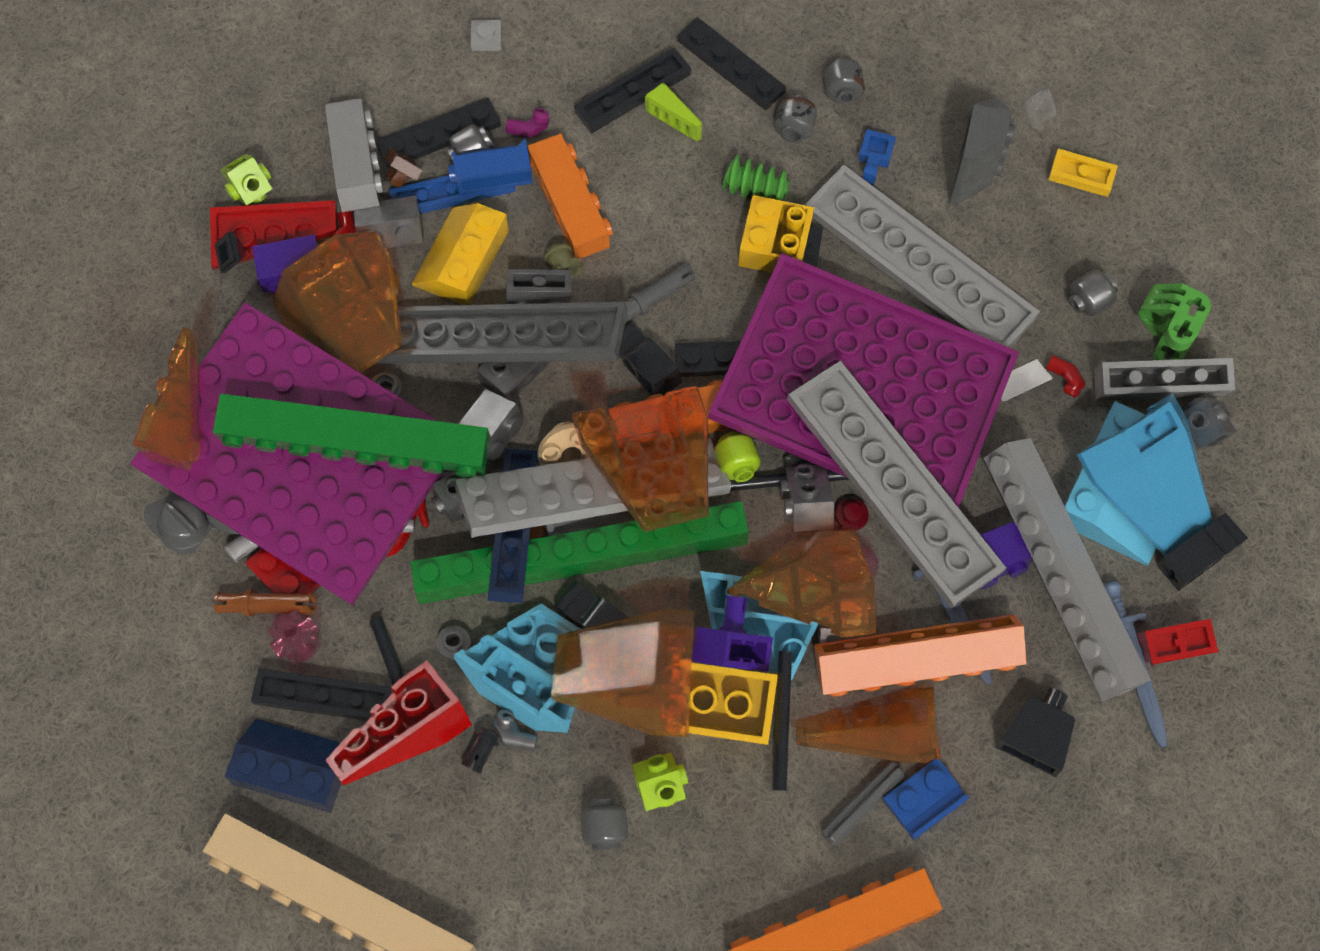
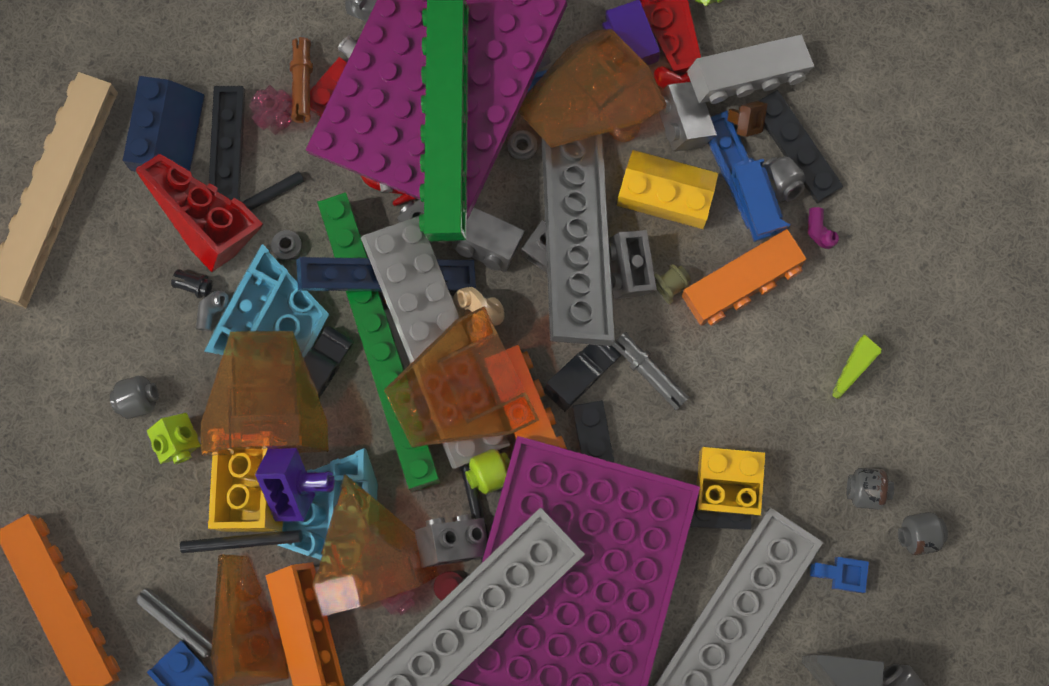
camera: 85 degrees right, 10 degrees up
(486, 35) = (916, 173): light grey plate -> none
(631, 90) = (876, 323): black plate -> none
(731, 63) = (927, 417): black plate -> none
(755, 180) = (787, 457): bright green piece -> none

